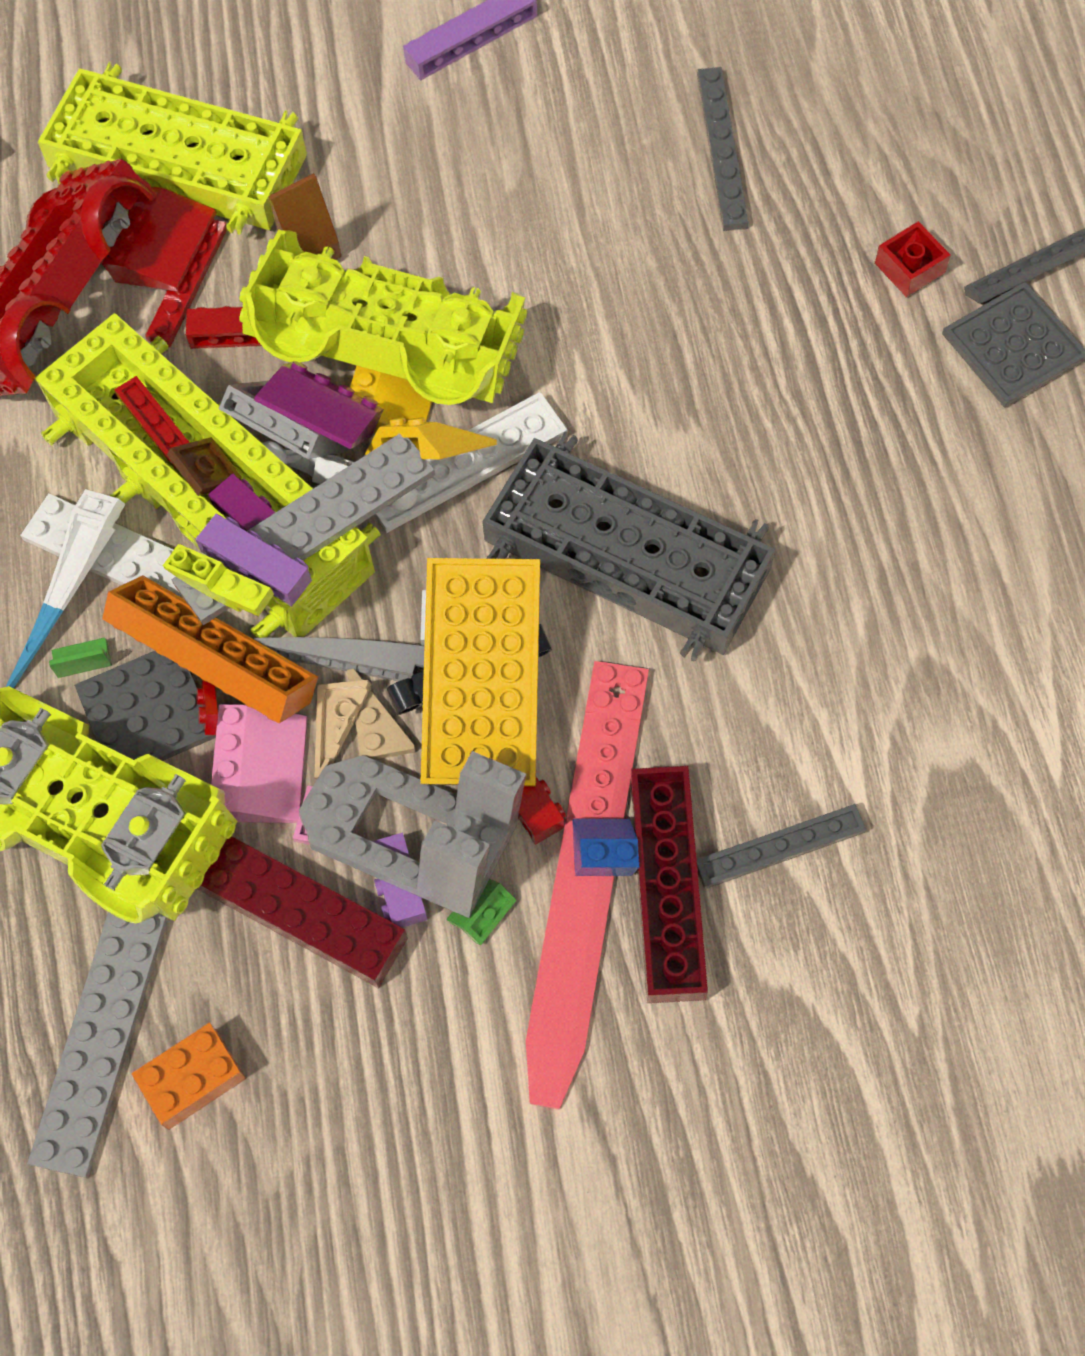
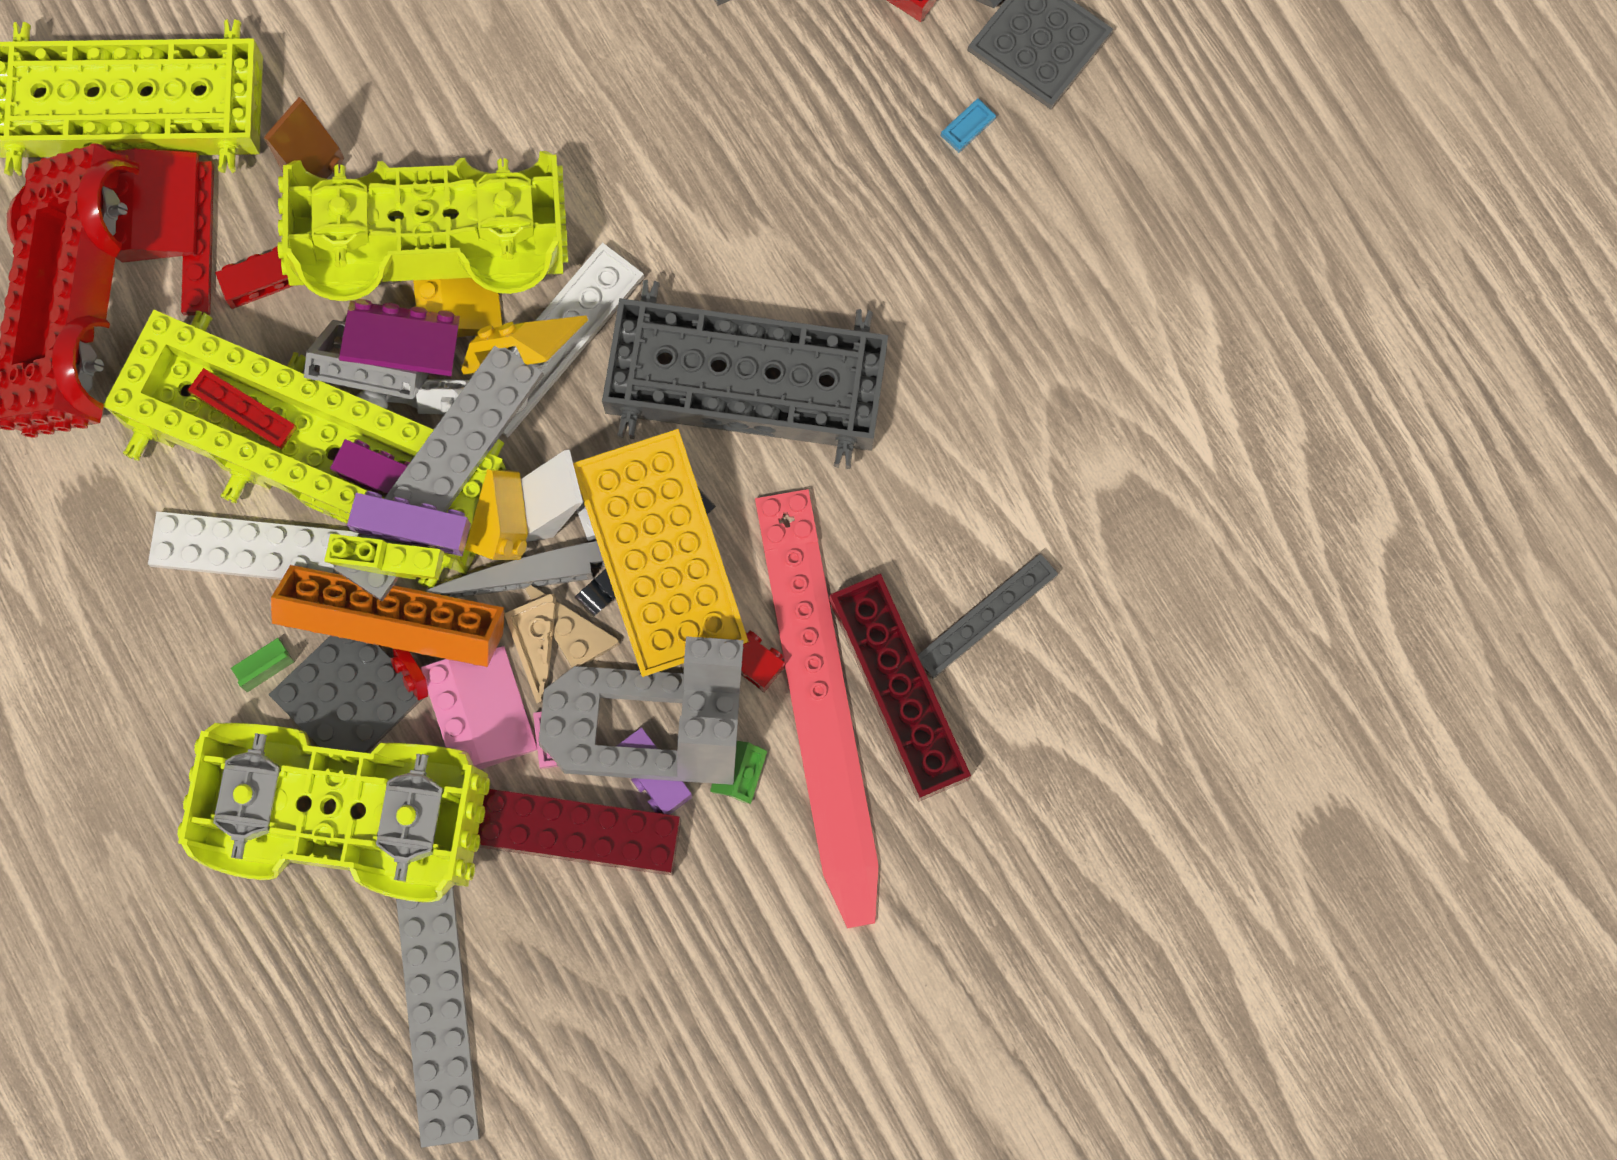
camera: 25 degrees left, 10 degrees up
(85, 538) = (219, 548): white plate -> none
(188, 1076) = (535, 1017): orange brick -> none
(202, 465) = (312, 440): reddish brown tile -> none
(345, 590) = (500, 518): none -> yellow slope
(394, 590) = (550, 496): none -> white slope
(605, 847) = (831, 674): blue slope -> none
(920, 397) = (968, 125): none -> dark azure tile

